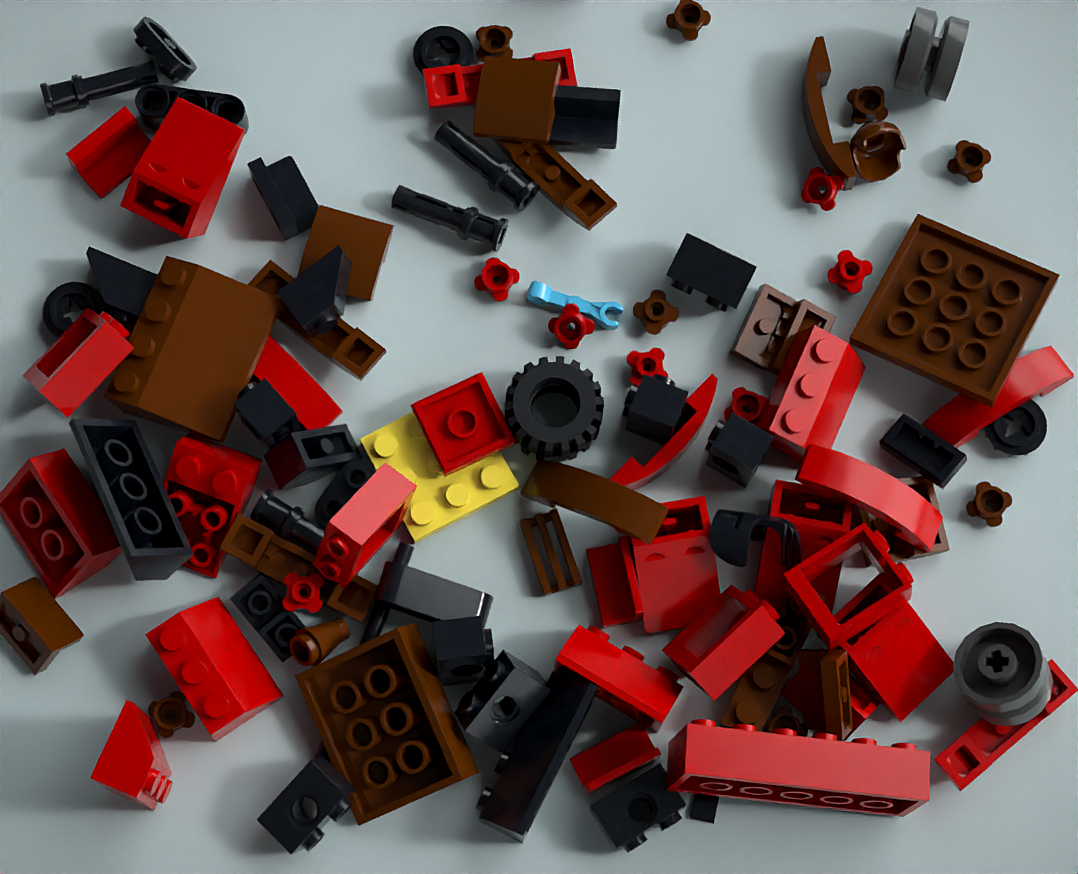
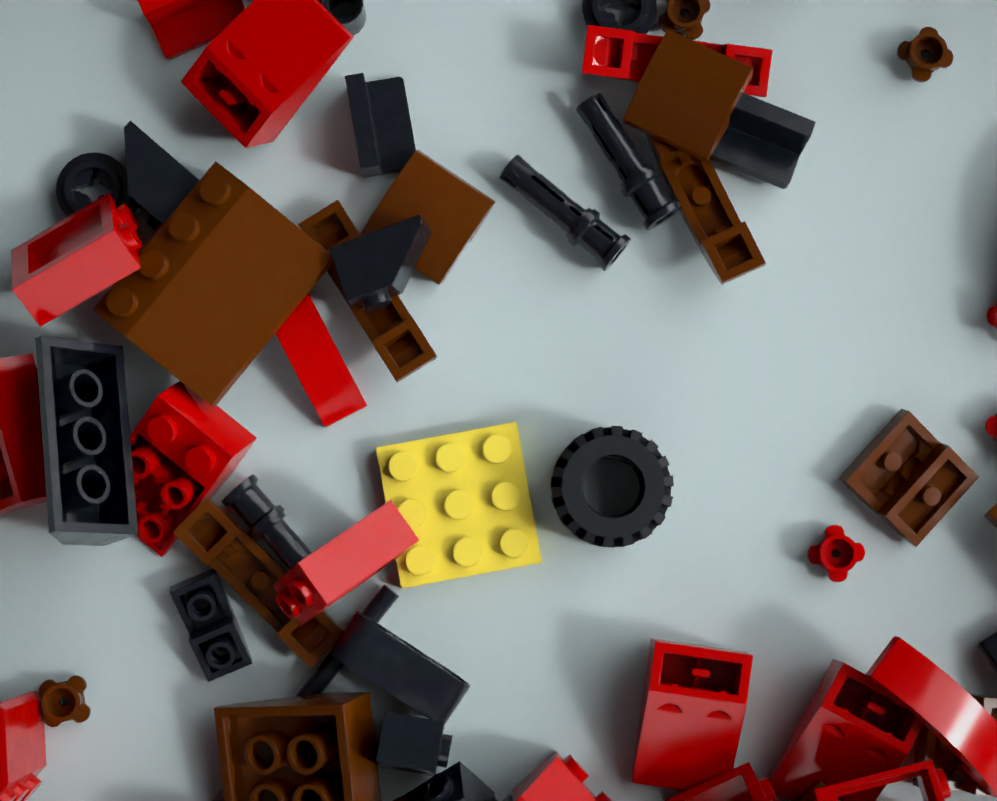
camera: 20 degrees right, 10 degrees up
(214, 666) = (127, 665): red slope -> none
(266, 414) = (273, 392): black brick -> none
(311, 455) = (314, 451): black slope -> none
(311, 584) = (241, 619): red plate -> none
(316, 642) = (253, 675): reddish brown cone -> none
(341, 489) = (339, 507): black plate -> none
(463, 424) = (499, 472): red tile -> none
(493, 269) = (597, 291): red plate -> none
(540, 520) = (553, 691): reddish brown tile -> none
(543, 294) = (645, 342): medium azure piece -> none
(568, 336) = (654, 398): red plate -> none
(595, 498) = (623, 617): reddish brown slope -> none
(615, 584) = (616, 713): red panel -> none
(639, 360) = (726, 477): red plate -> none
(652, 322) = (763, 416): reddish brown plate -> none
(654, 408) = (730, 527): black brick -> none
(697, 408) = (781, 536): red slope -> none
(710, 271) = (849, 379): black brick -> none
(734, 530) = (767, 728): black helmet -> none
(737, 449) = (810, 608): black brick -> none
(811, 392) = (915, 565): red slope -> none

